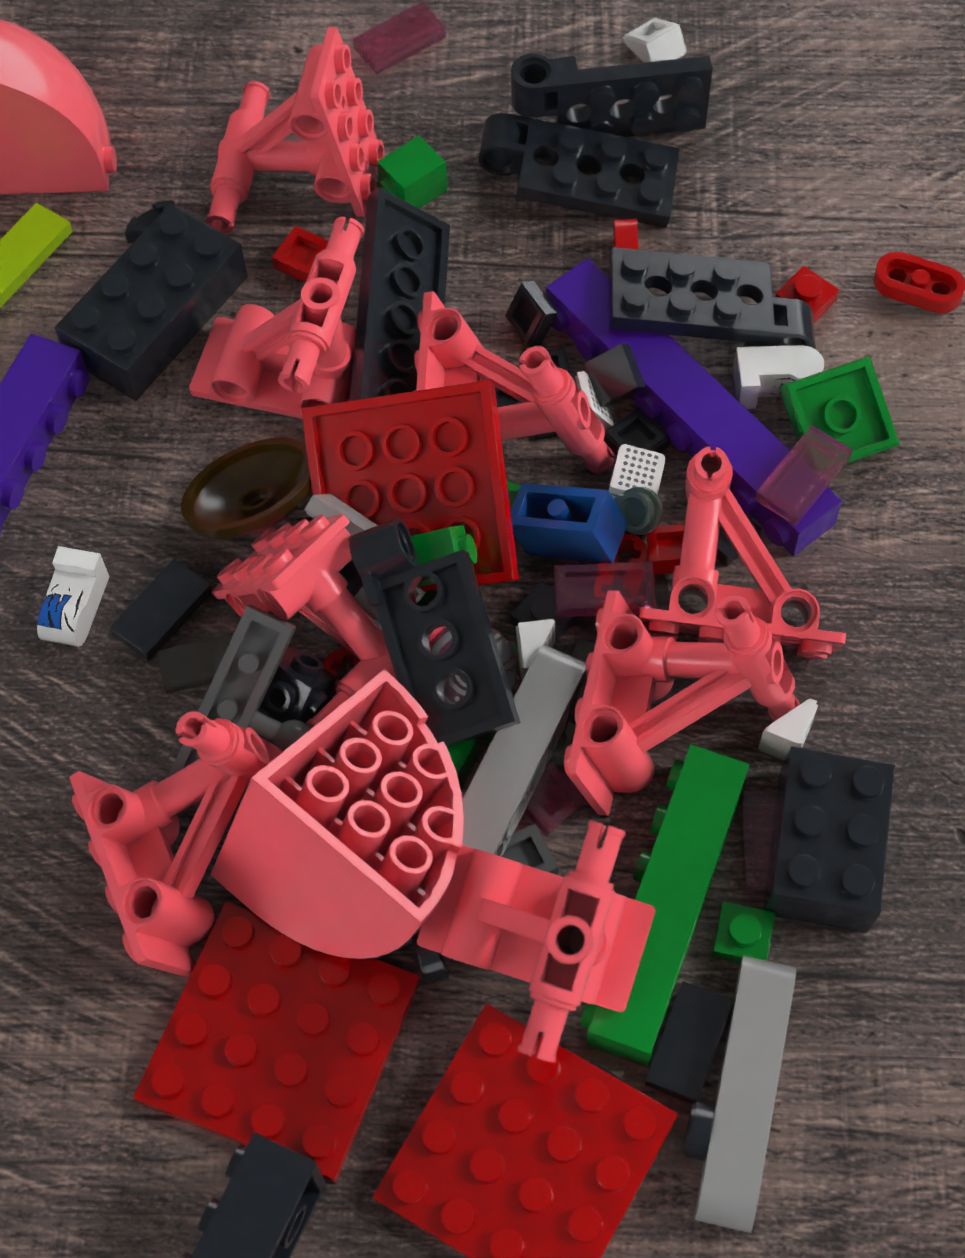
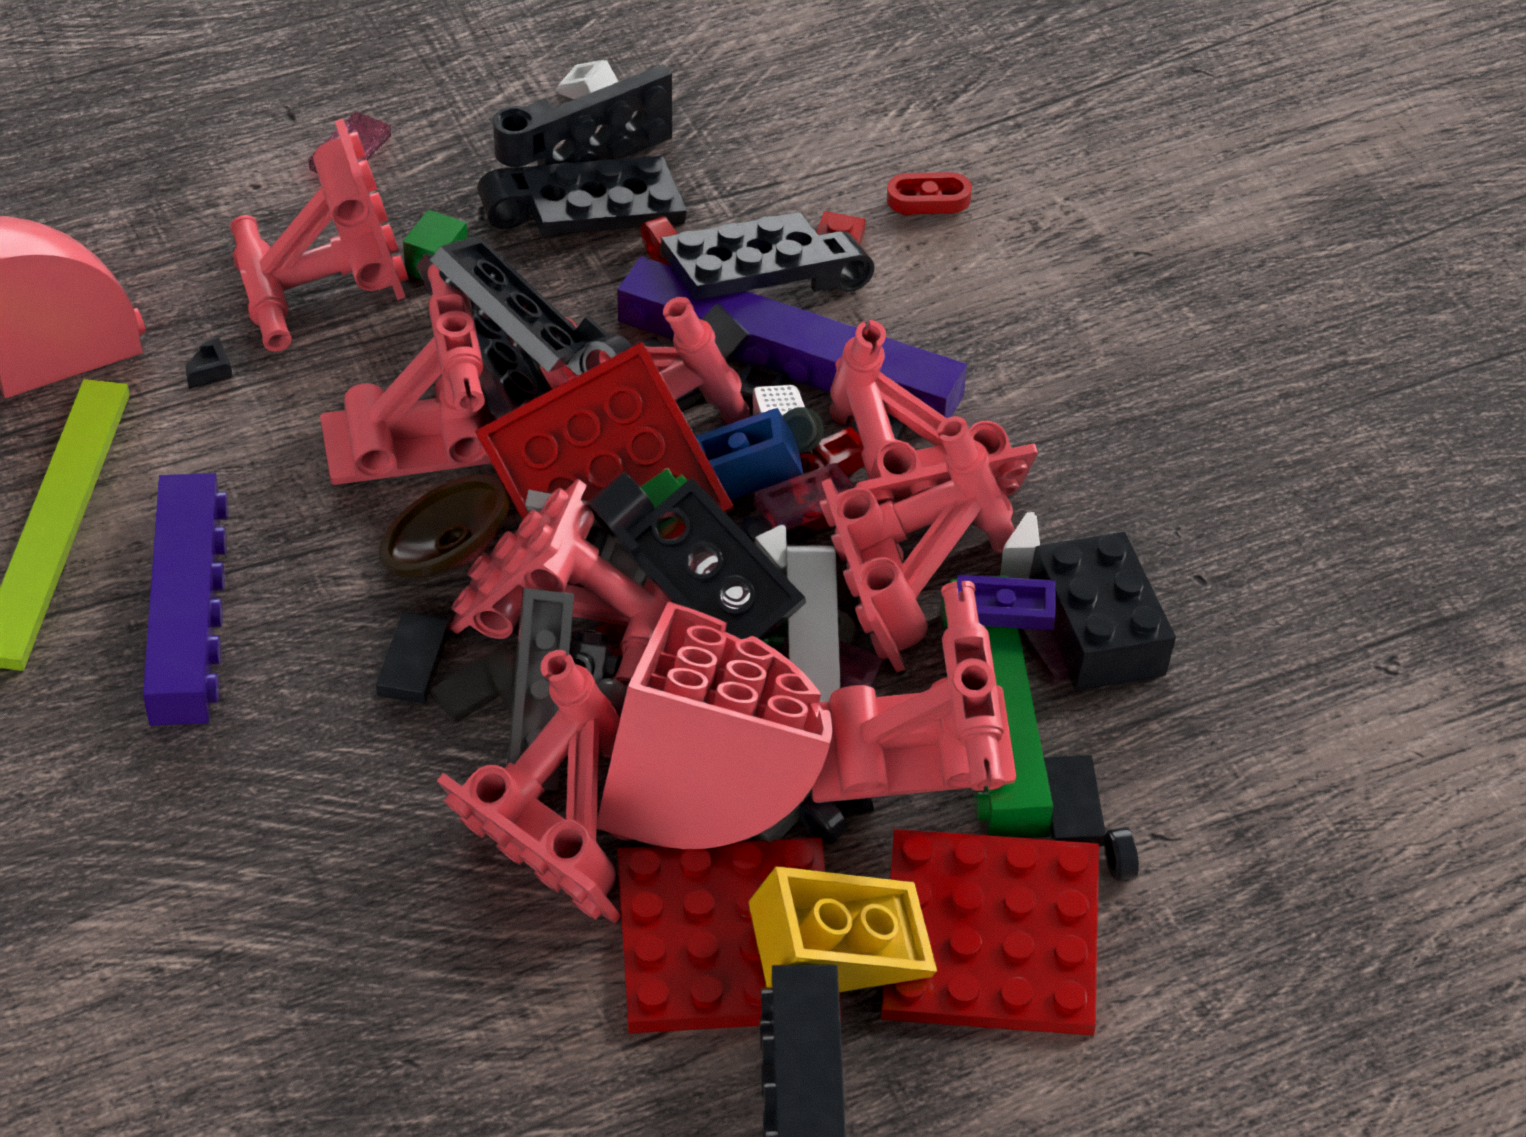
camera: 30 degrees left, 15 degrees down
(72, 596) = (325, 669): white leg -> none
(153, 301) = (256, 416): black brick -> none
(298, 253) = (371, 341): red plate -> none
(363, 1108) = (842, 920): none -> yellow slope
(449, 353) = (521, 311): none -> black hinge
(531, 313) = (613, 313): black tile -> none
(723, 801) = (1013, 601): none -> dark purple plate
(743, 933) = (1070, 710): green plate -> none
(746, 1094) = (1138, 800): light grey beam -> none
(763, 369) = (851, 293): white leg -> none
(803, 475) = (926, 353): clear pink tile -> none
(844, 405) = (924, 306): green tile -> none

